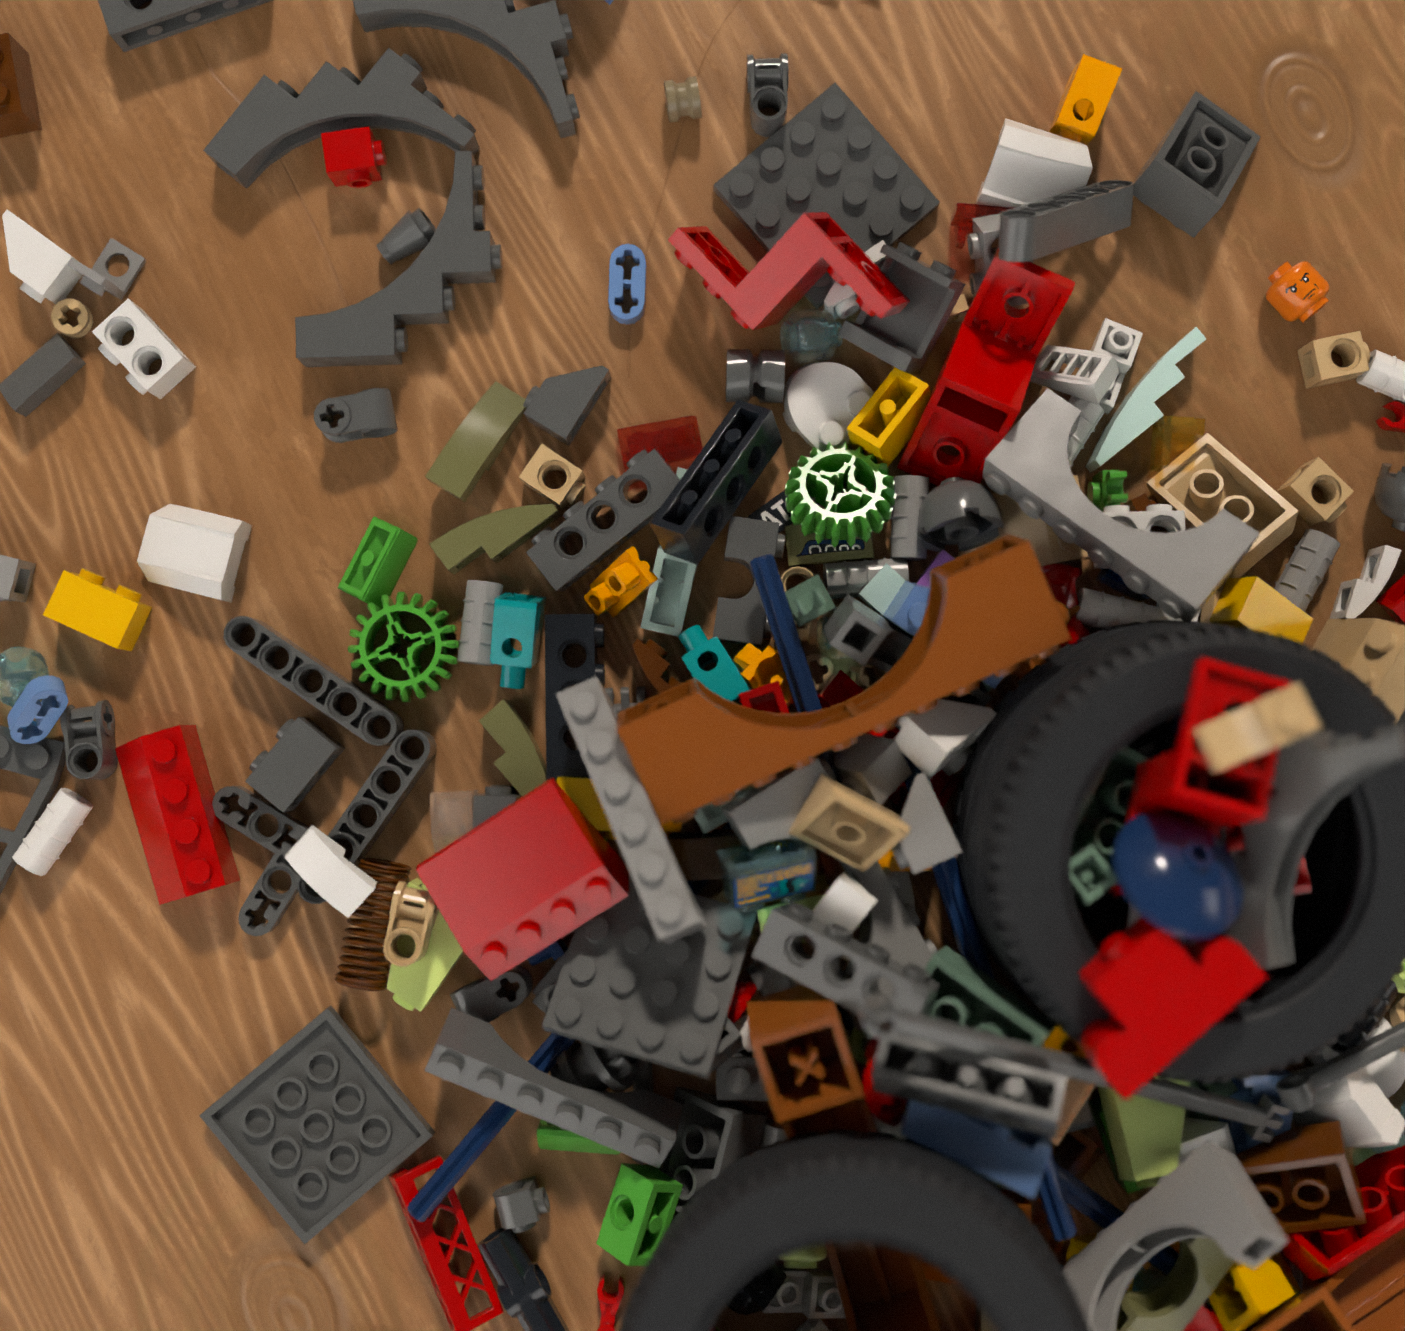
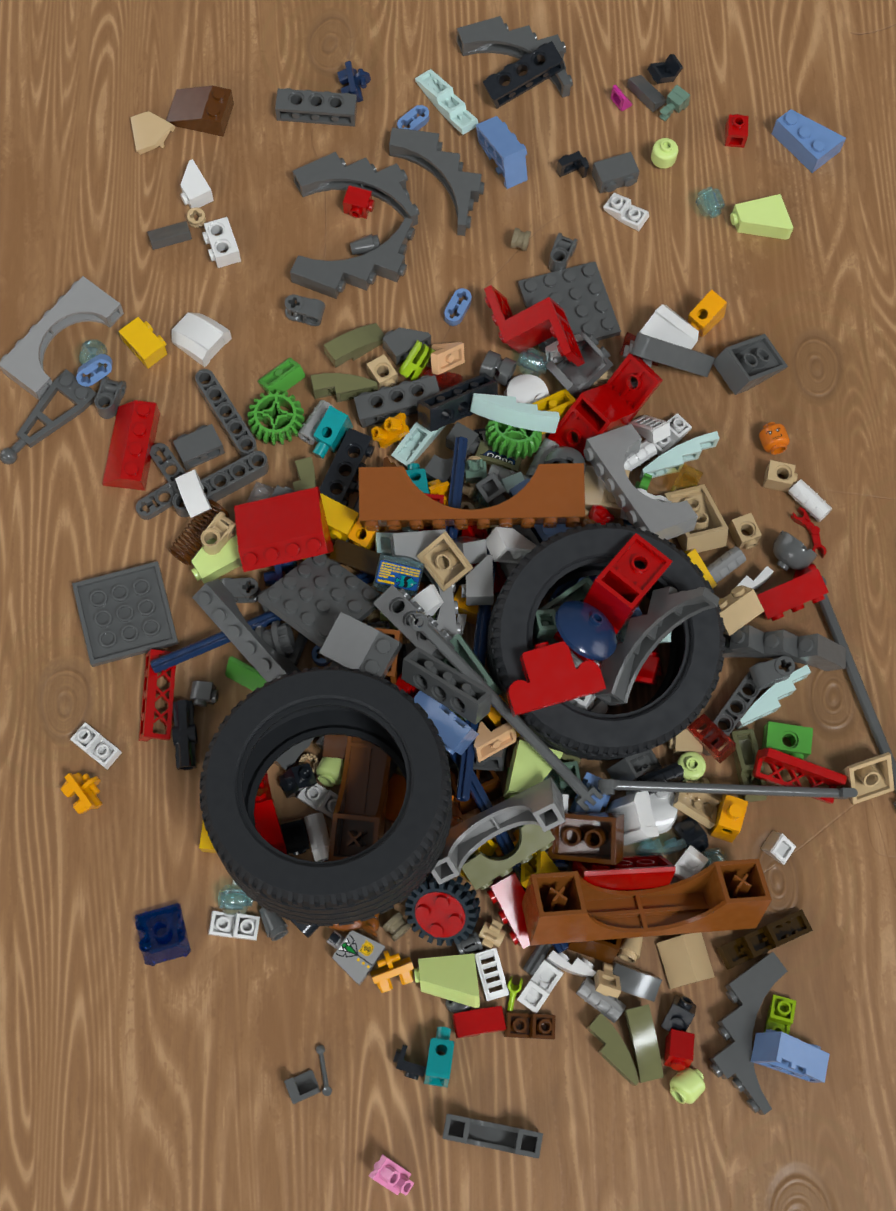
camera: 20 degrees right, 15 degrees down
(52, 832) = (71, 428): white axle -> none
(100, 280) = (217, 204): light grey bracket -> none
(604, 430) = (416, 361): none -> lime arm
(630, 813) = (347, 519): light grey arch -> none
(653, 396) = (447, 356): none -> light nougat slope
(785, 1084) = (360, 646): none -> dark grey slope
(816, 463) = (520, 415): none -> light aqua slope
(1256, 727) = (646, 566): tan arch -> none

